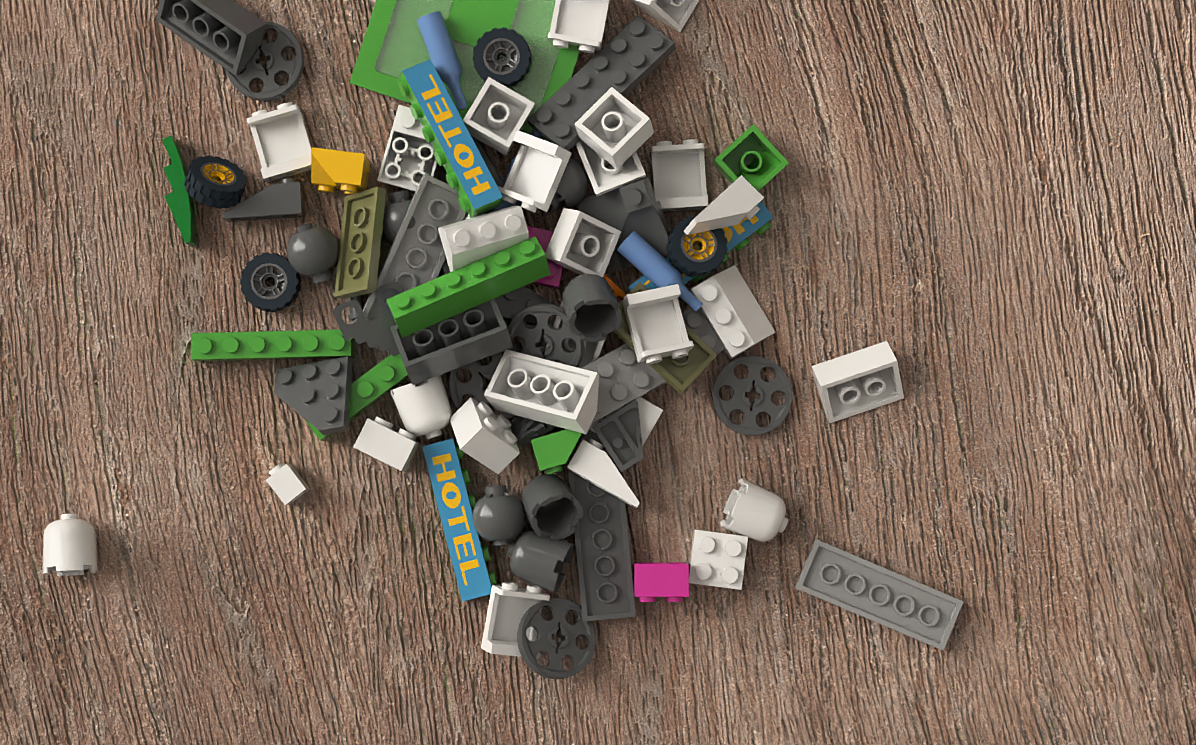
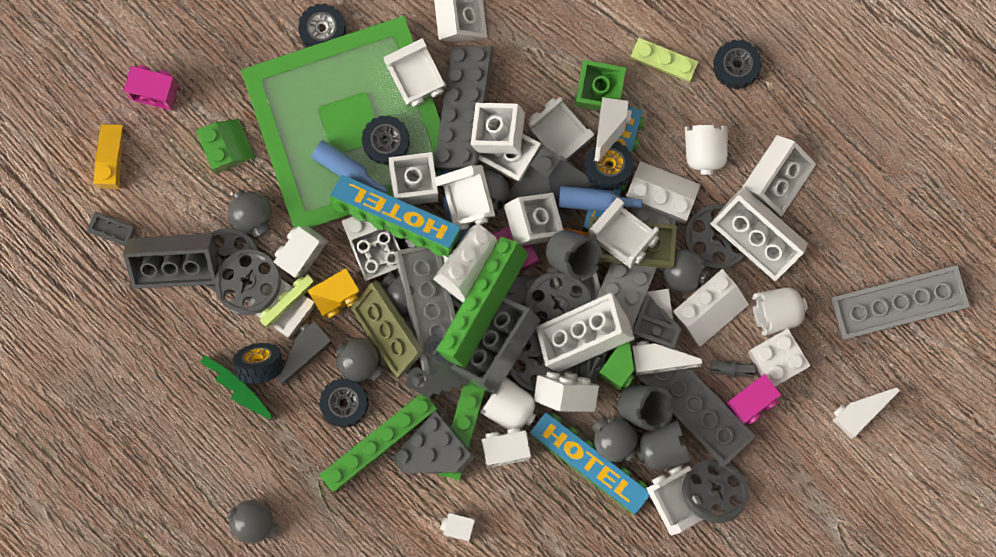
camera: 45 degrees left, 5 degrees down
(96, 329) = (251, 522): none -> dark grey brick
(274, 89) = (241, 274): none -> dark grey wedge
(288, 142) = (286, 301): none -> yellowish green plate
(319, 30) = (250, 213): none -> dark grey brick
(337, 104) = (300, 250): none -> white brick
(666, 533) = (732, 369): none -> dark grey pin
(690, 459) = (710, 308): none -> white slope
(694, 407) = (687, 273): none -> dark grey brick
(752, 670) = (859, 413): none -> white slope
(793, 424) = (759, 233): none -> white slope
(807, 301) = (706, 148): none -> white cylinder
(835, 183) = (664, 60): none -> yellowish green plate
(907, 227) = (749, 62): none -> black wheel

